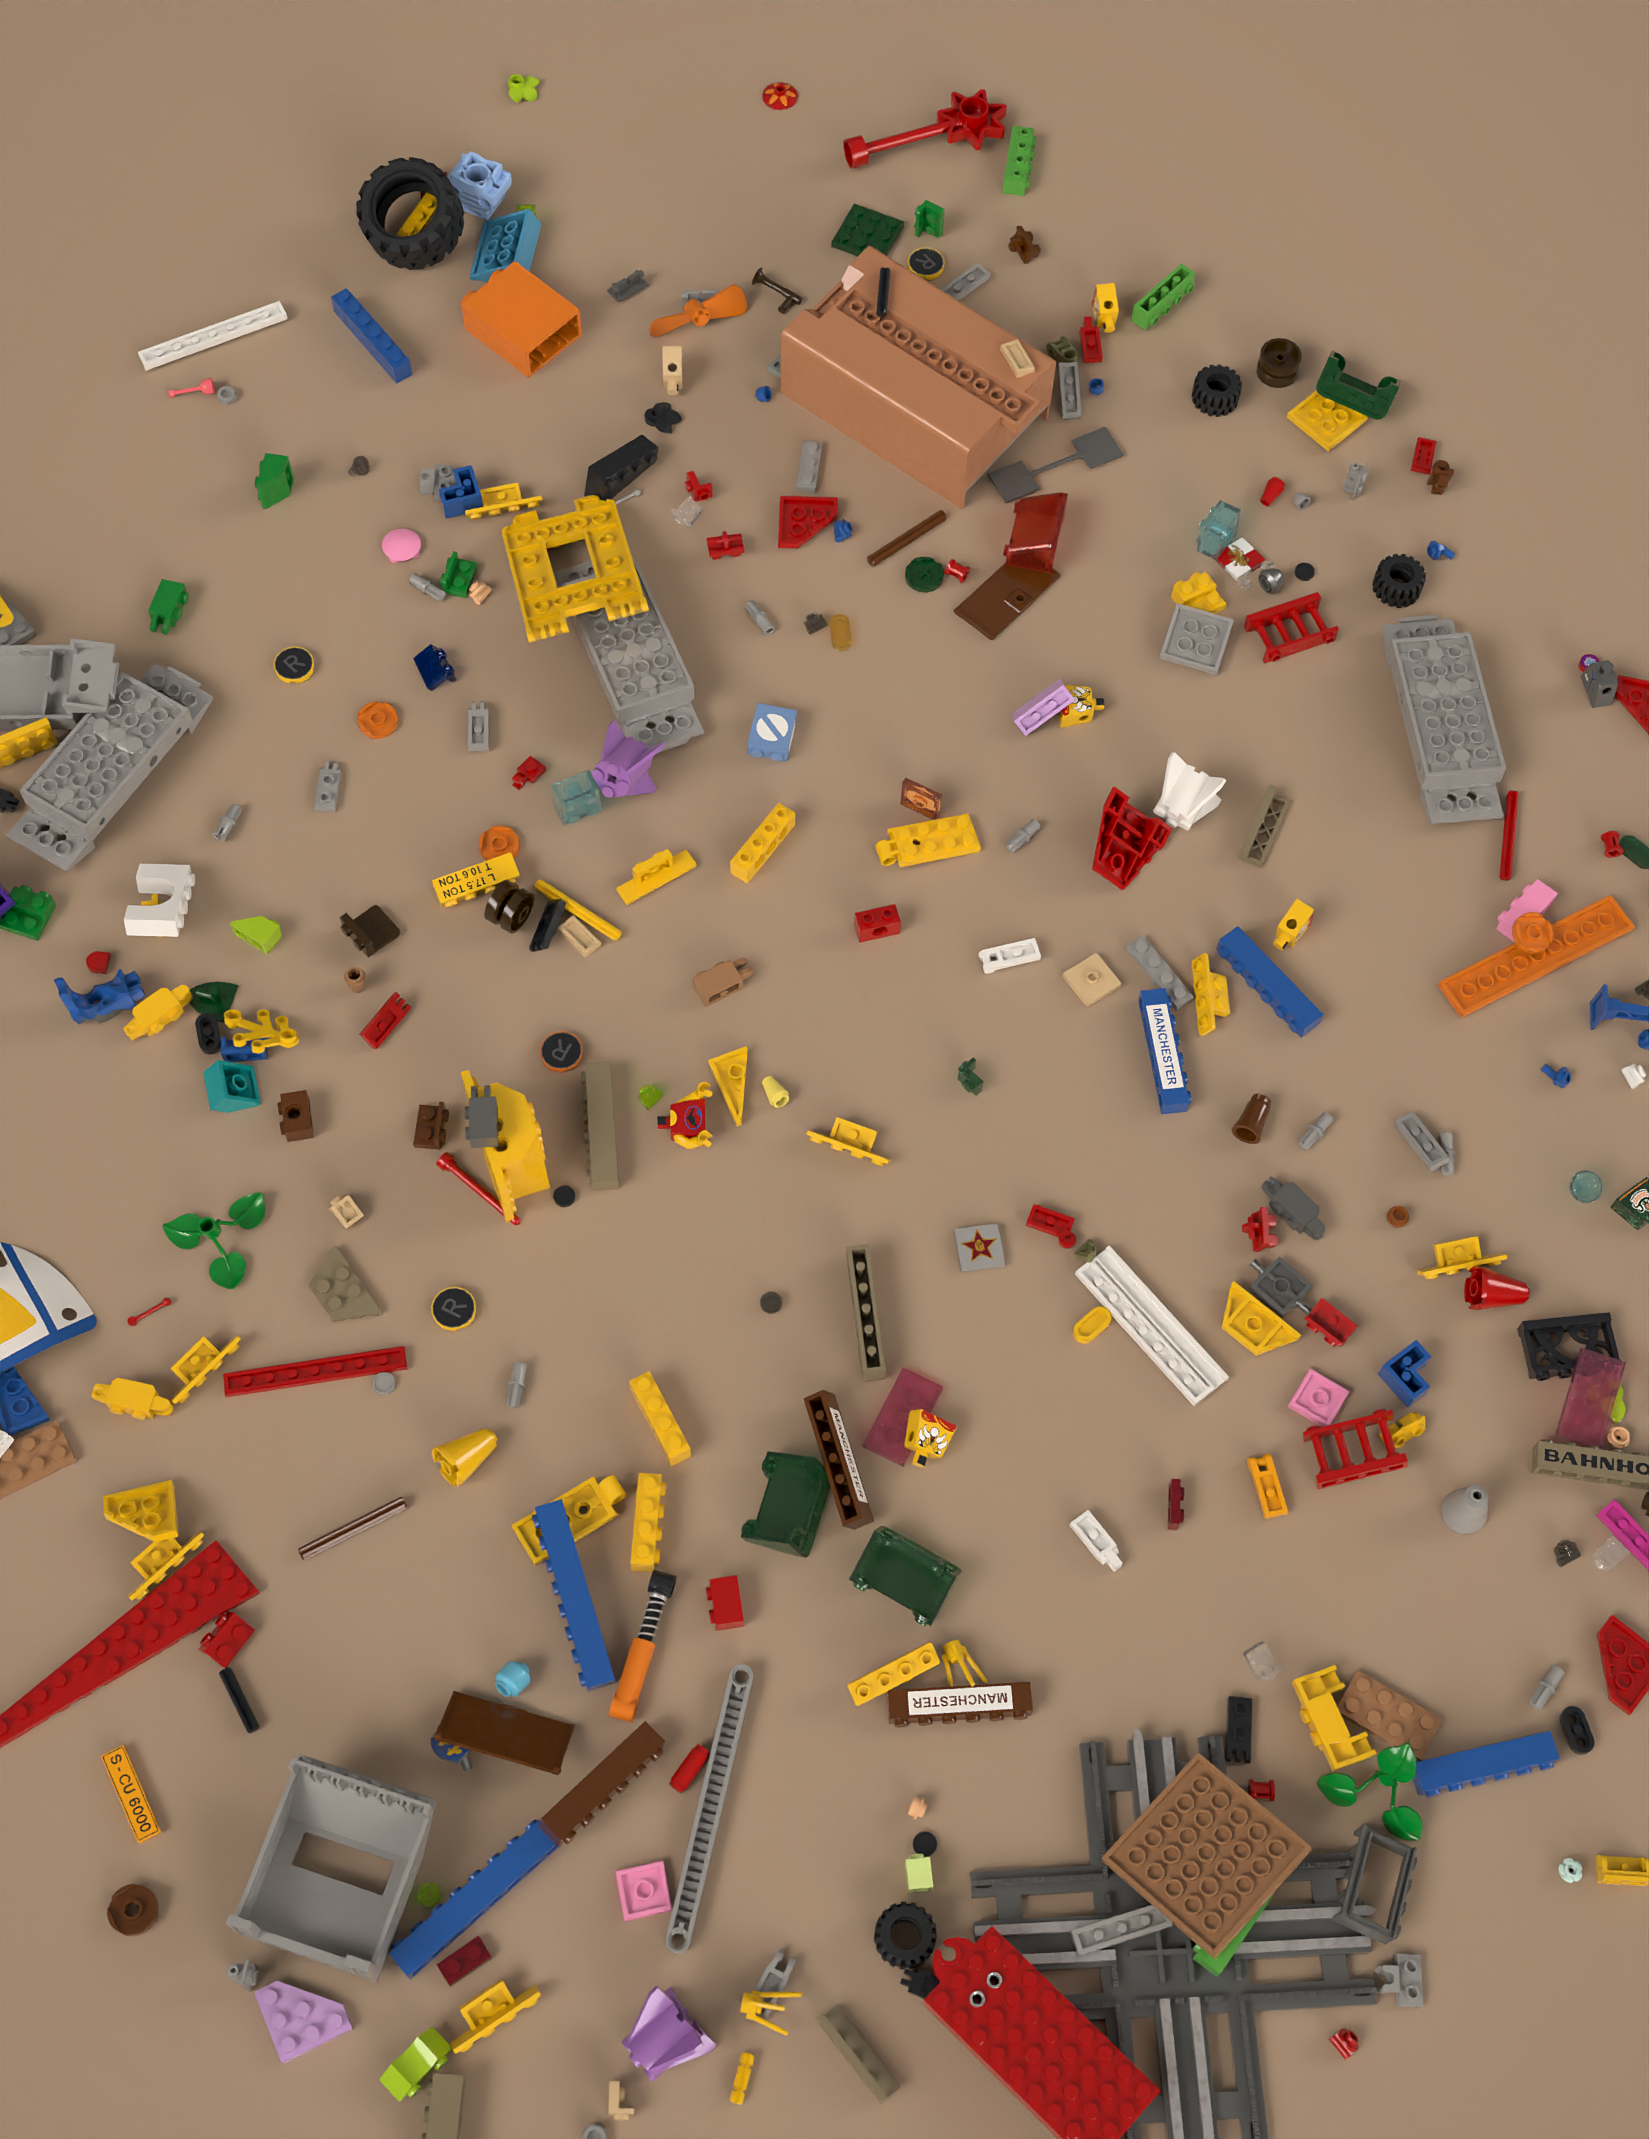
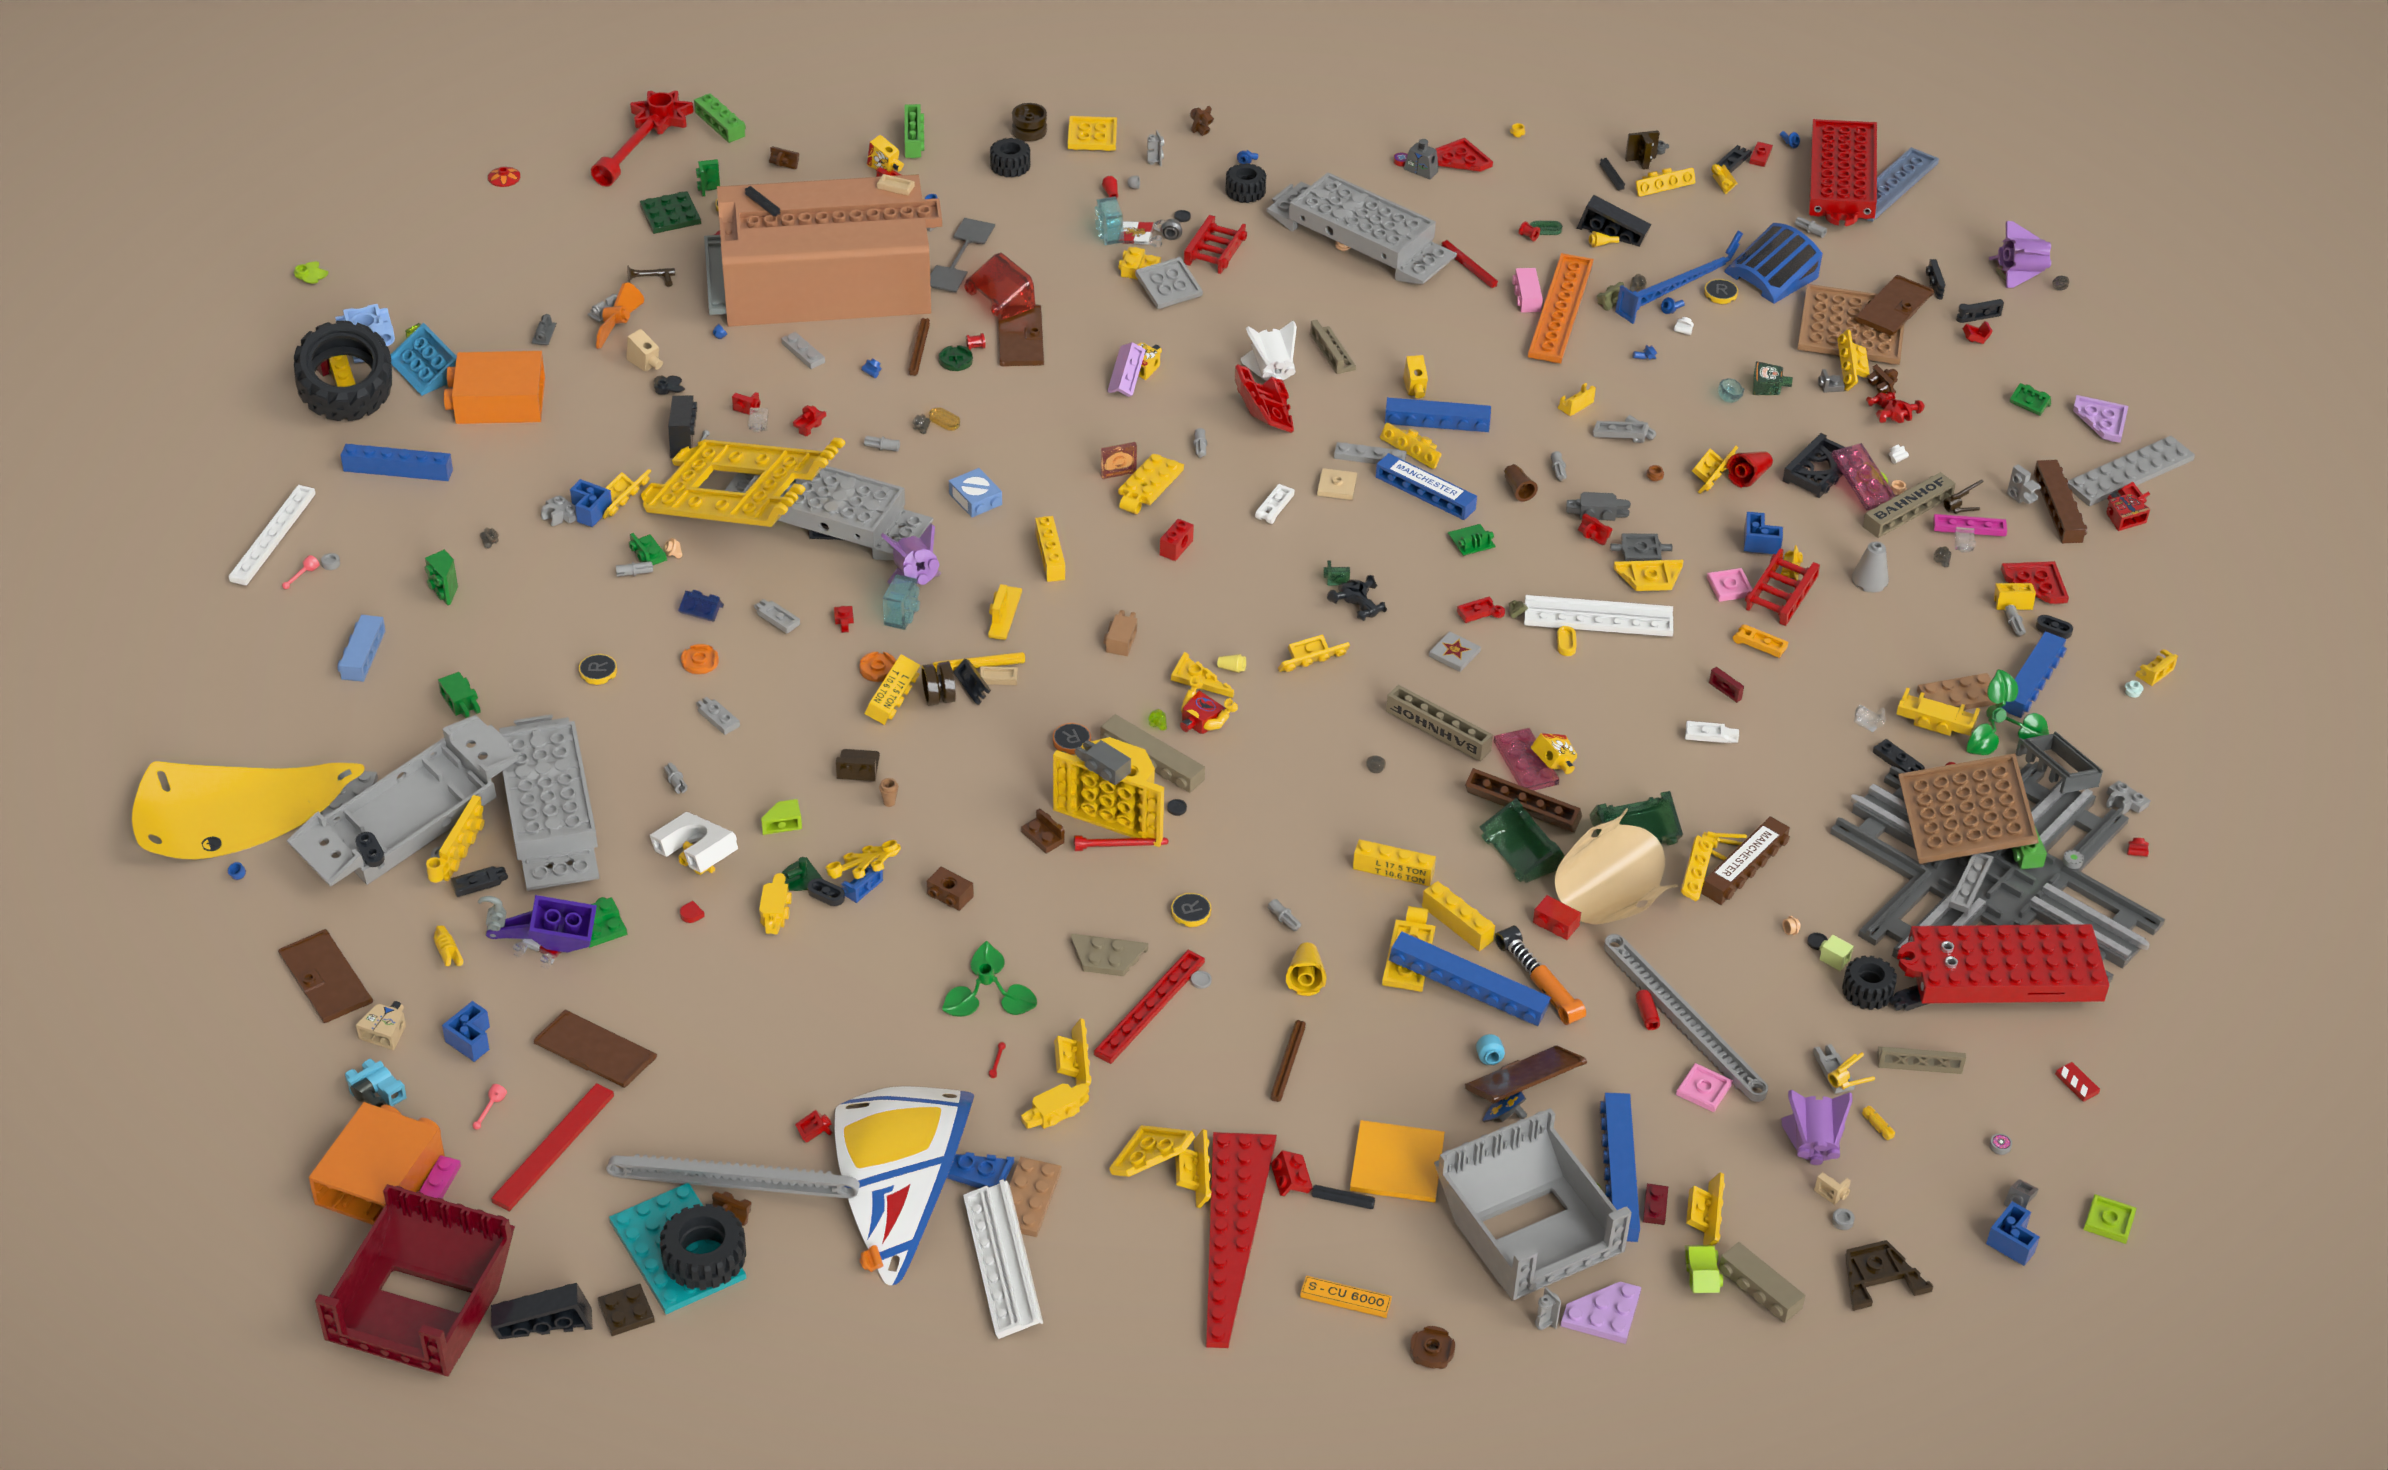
camera: 45 degrees left, 20 degrees down
(114, 995) = (732, 912): blue hips -> none
(152, 500) = (361, 648): none -> medium blue brick
(231, 1086) = (882, 906): teal slope -> none
(320, 1706) = (1397, 1161): none -> light orange tile
(345, 1210) = (1051, 910): tan bracket -> none
(385, 1021) = (937, 801): red hinge -> none
(401, 545) = (581, 560): bright pink dish -> none
(602, 1784) = (1616, 1050): reddish brown brick -> none
(803, 518) = (838, 376): red plate -> none
(819, 1617) = (1611, 872): none -> tan piece
(961, 1111) = (1356, 593): none -> black piece
(1138, 1142) = (1472, 539): none -> green hinge
(1251, 1999) = (2073, 859): none -> light grey tile
(1331, 1323) = (1690, 544): red bracket -> none
(1354, 392) = (1112, 104): dark green windscreen -> none
(1422, 1074) = (1577, 401): none -> yellow hinge
(1423, 455) = (1174, 118): red plate -> none
(1532, 932) = (1548, 293): orange tile -> none
(1578, 1661) = (2017, 594): none -> yellow hinge
(1594, 982) = (1610, 297): none -> olive hips

